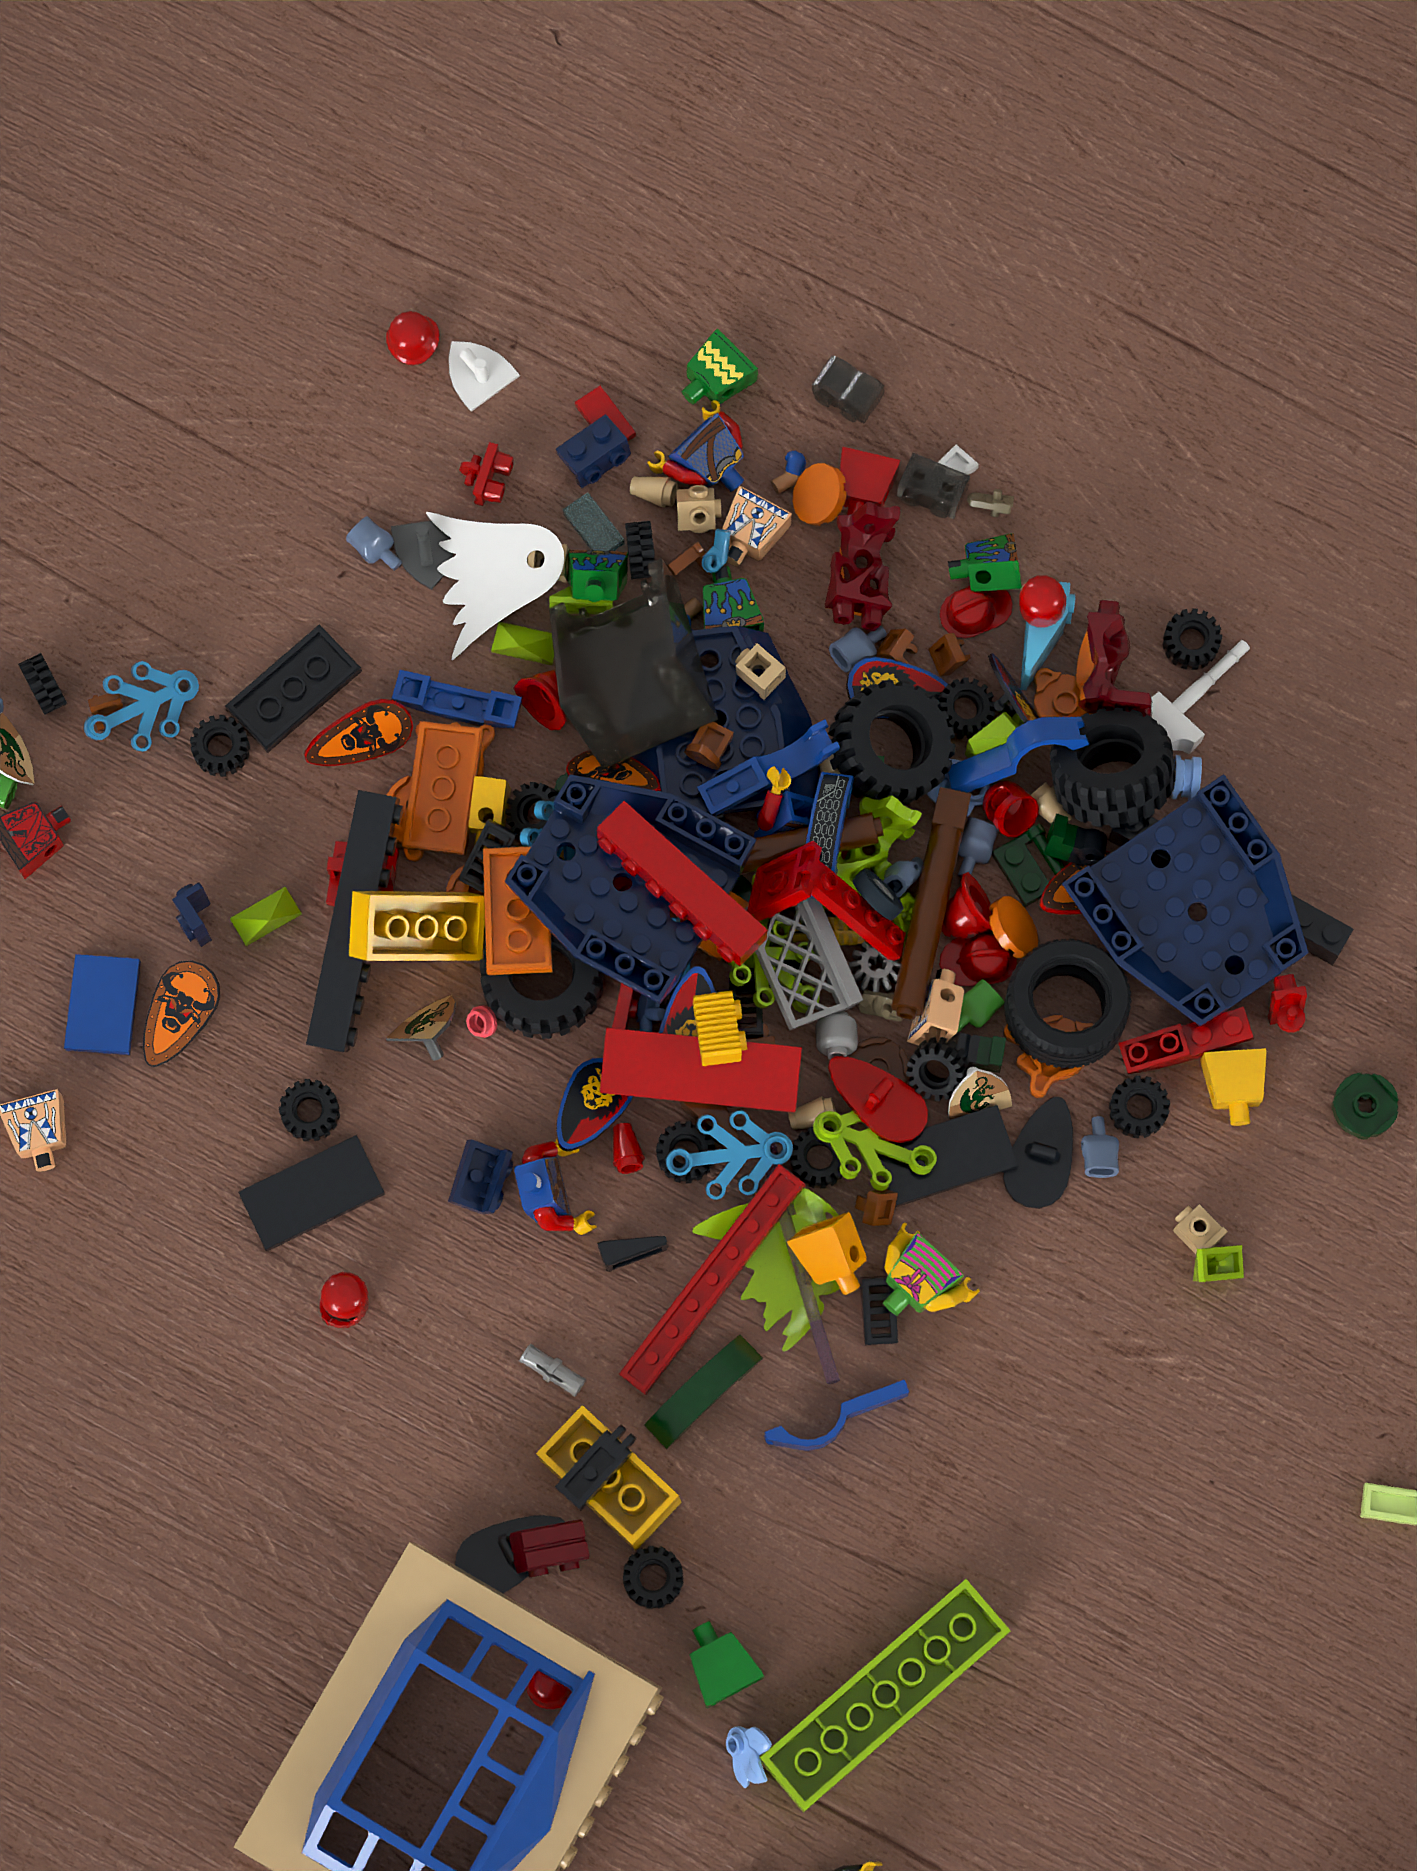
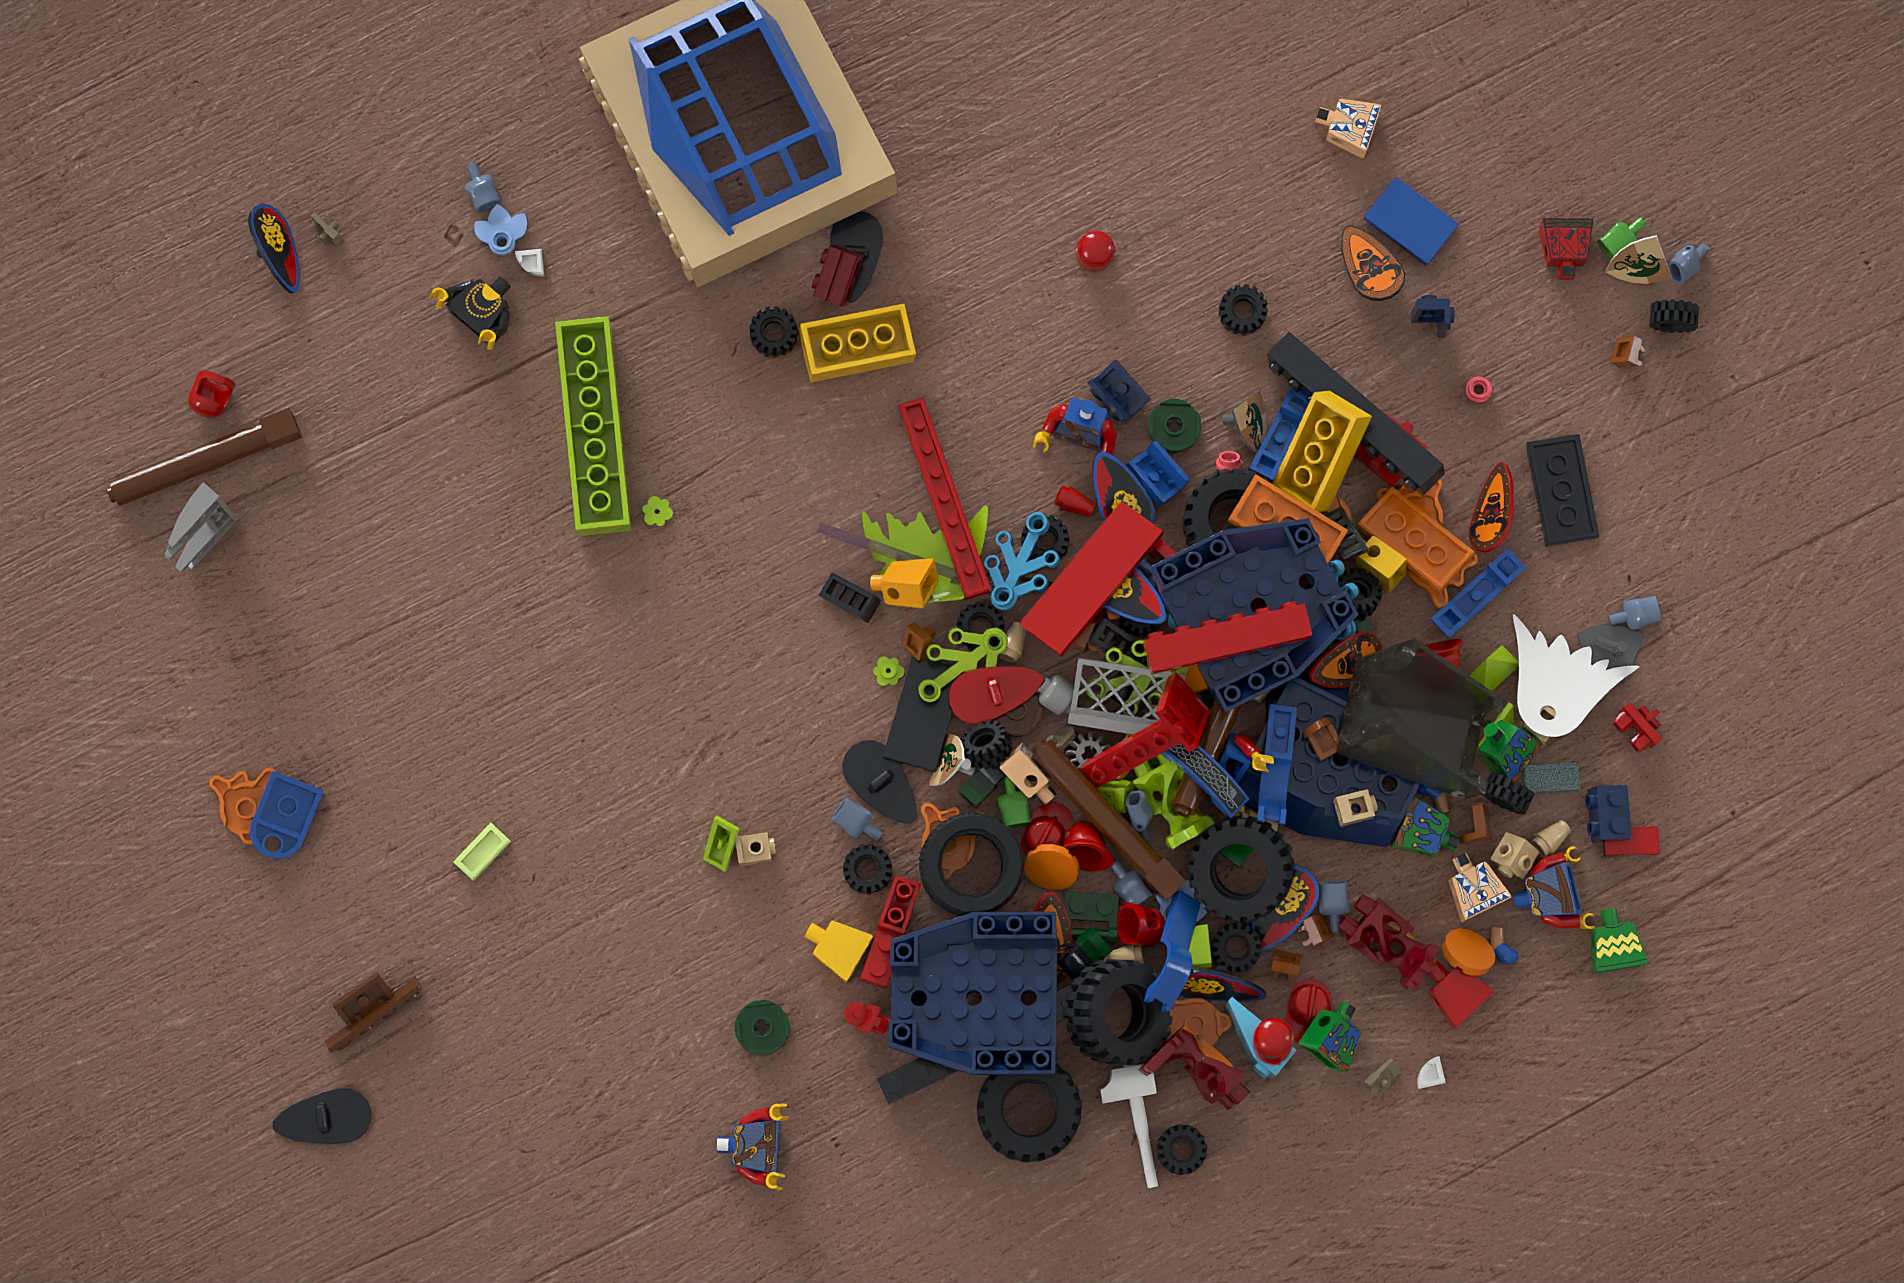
camera: 120 degrees right, 5 degrees up
(147, 703) = (1614, 379): dark azure plant -> none
(224, 763) = (1554, 396): black tyre -> none
(241, 820) = (1481, 382): none -> coral plate
(265, 916) = (1404, 368): lime slope -> none
(311, 1193) = (1184, 277): black tile -> none
(412, 338) = (1785, 743): red helmet -> none
(422, 988) = (1280, 436): none -> blue slope
(478, 372) = (1727, 774): white shield -> none
(484, 1083) = (1185, 415): none -> dark green plate
(541, 1083) = (1158, 474): none -> blue bracket
(552, 1370) = (955, 356): light grey pin -> none
(596, 1467) = (866, 331): black hinge -> none
(627, 1251) = (1005, 448): black slope -> none
(702, 1391) = (874, 446): dark green slope -> none
(718, 553) = (1468, 846): dark azure arm -> none
(718, 1028) = (1110, 602): yellow brick -> none
(721, 1665) = (686, 337): green torso -> none
(745, 1748) = (620, 317): light blue plate -> none
(847, 389) = (1539, 1030): clear smoke brick -> none
(848, 1409) = (805, 475): blue piece -> none
(878, 894) = (1134, 778): black bush -> none
(922, 1276) = (849, 634): torso -> none
(923, 1559) = (654, 505): none -> lime plant
(933, 486) = (1422, 1041): clear smoke brick -> none
(936, 1220) = (885, 678): none -> lime plant
(1187, 777) = (1080, 1067): light blue wheel -> none
(1289, 770) = (1029, 1147): none -> black tyre

